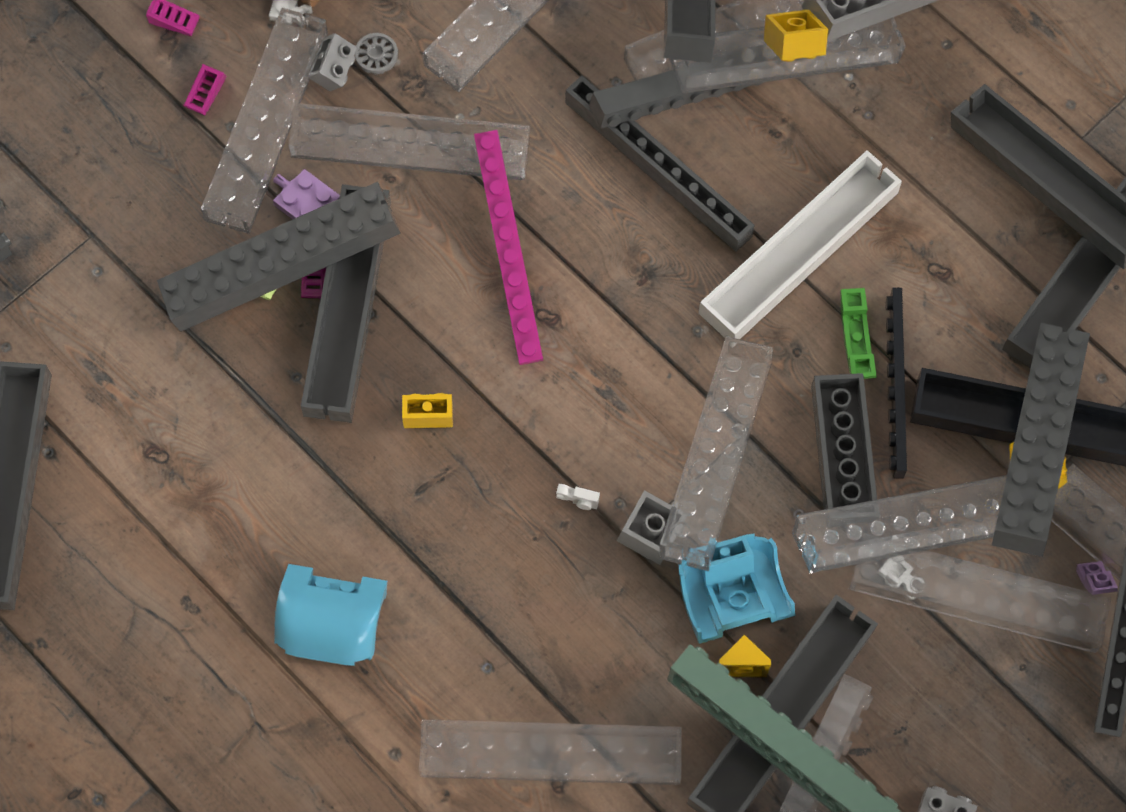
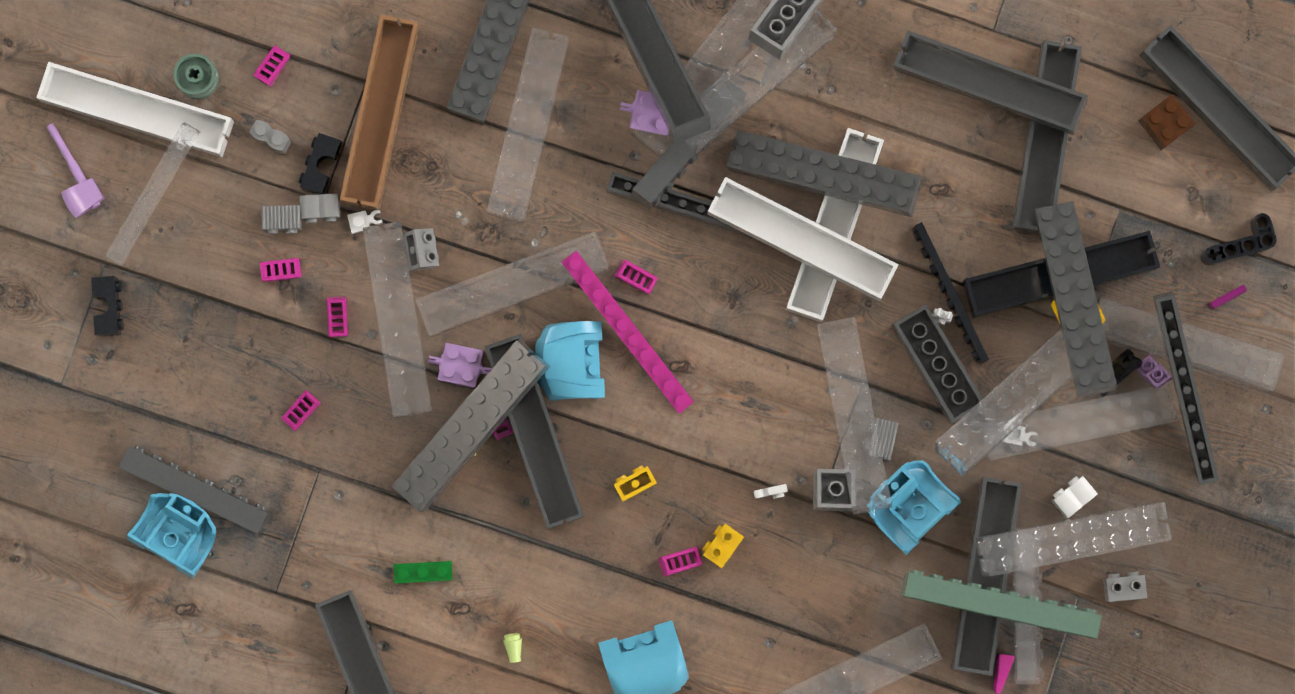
camera: 30 degrees left, 15 degrees up
(111, 171) = (316, 403): none -> dark pink slope
(139, 394) = (423, 572): none -> green plate
(191, 522) = (513, 646): none -> yellowish green cone
(376, 53) = (447, 222): light grey wheel -> none
(422, 530) = (664, 565): none -> dark pink slope
(430, 249) = (573, 360): none -> medium azure piece
(490, 528) = (722, 546): none -> yellow brick
(546, 182) = (624, 263): none -> dark pink slope
(648, 33) = (645, 114): none -> lavender plate
(744, 498) = (887, 434): none -> light grey brick
(746, 660) = (942, 553): yellow slope -> none
(756, 234) = (802, 239): none -> white piece
(795, 35) = (757, 69): yellow brick -> none
(818, 181) = (825, 173): none -> dark grey piece
(856, 332) = (905, 272): bright green slope -> none
(876, 400) = (942, 316): none -> white plate
(909, 716) = (1073, 539): none -> clear piece
(933, 676) = (1074, 497): none -> white brick
(1054, 559) = (1121, 370): none -> black plate

